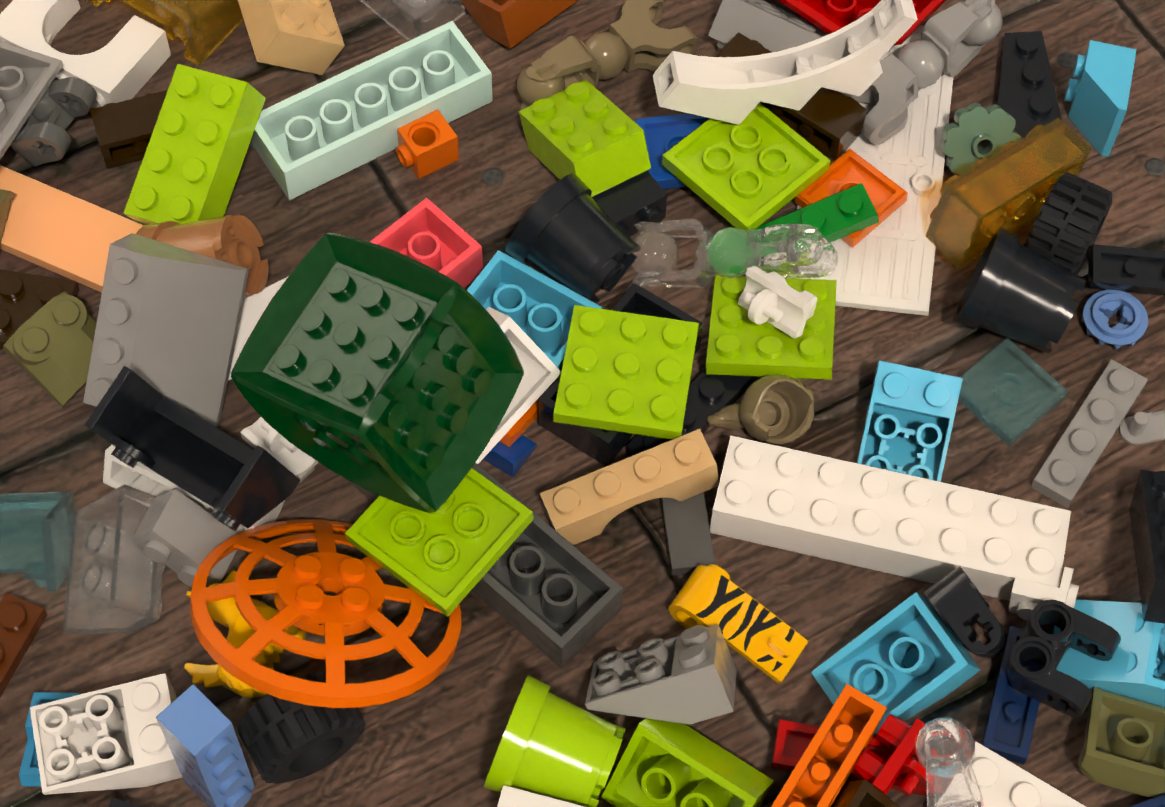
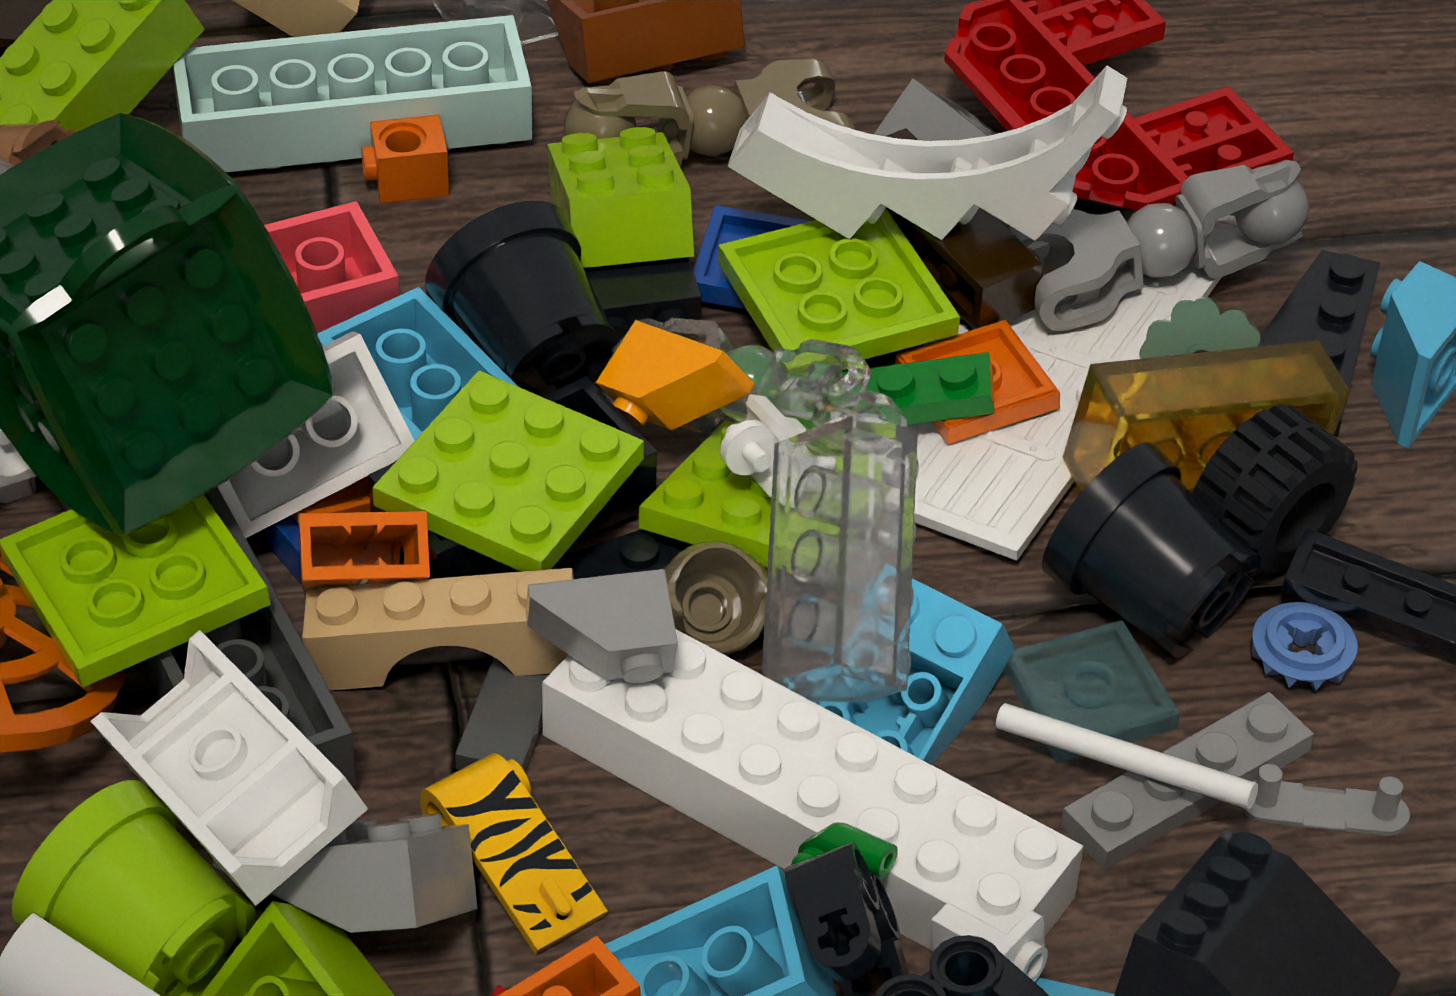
camera: 20 degrees right, 15 degrees down
(557, 463) = (362, 548): none -> orange torso
(580, 649) = (235, 772): none -> white piece
(688, 270) = (669, 378): none -> light orange slope
(751, 465) = (609, 623): none -> light grey slope
(859, 373) = (841, 560): none -> clear slope
(940, 564) = (878, 853): none -> green arm
(1059, 435) = (1127, 756): none -> white bar

